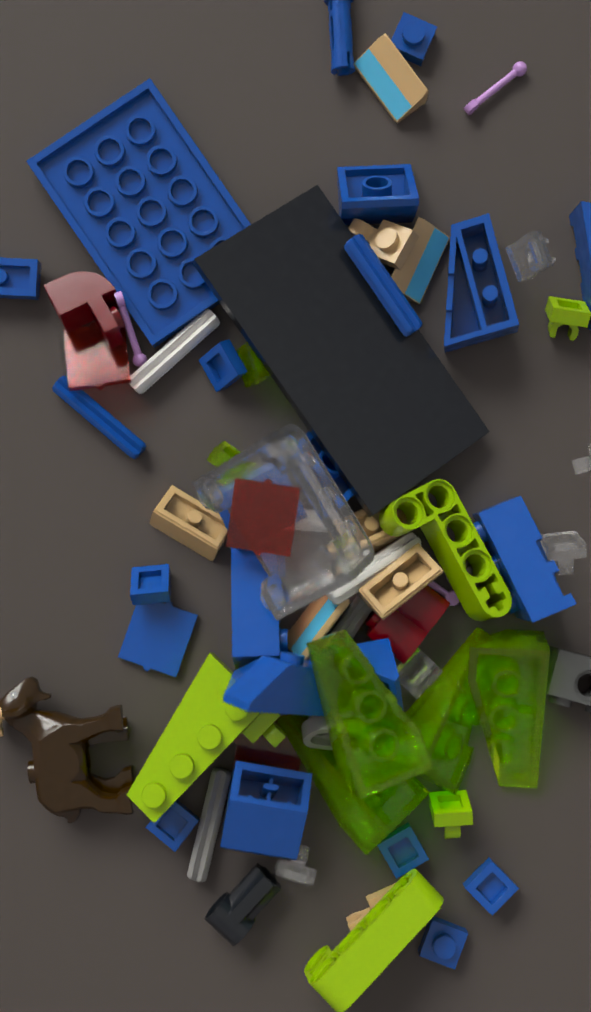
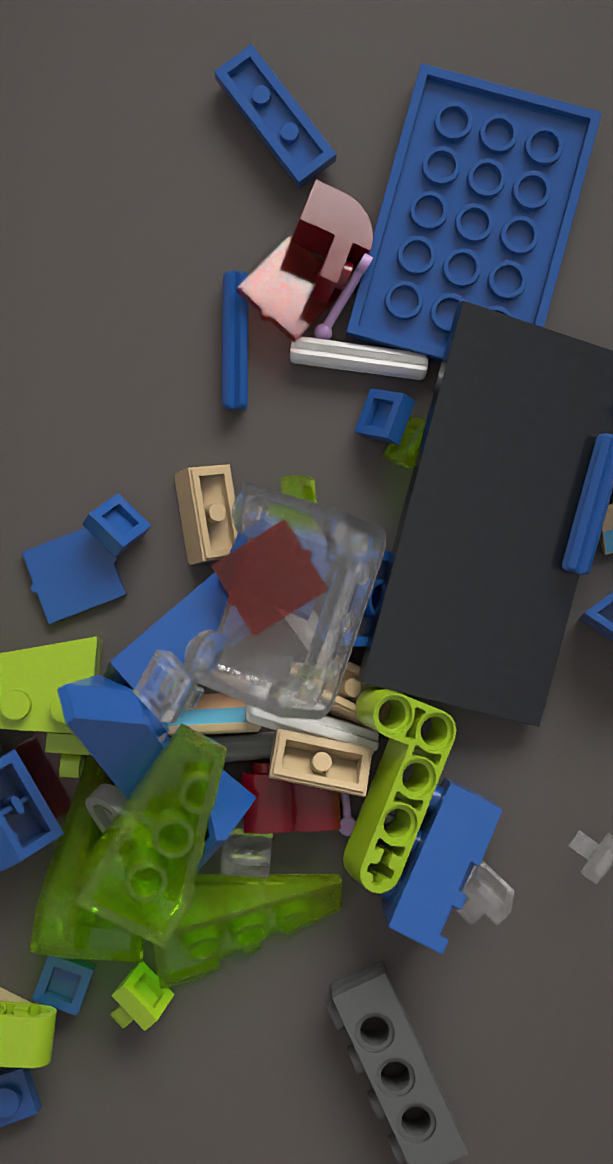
camera: 50 degrees right, 0 degrees up
(277, 633) = (167, 687): none -> clear tile
(490, 886) = (101, 1097): blue plate -> none
(510, 694) = (302, 960): clear neon green wedge -> none

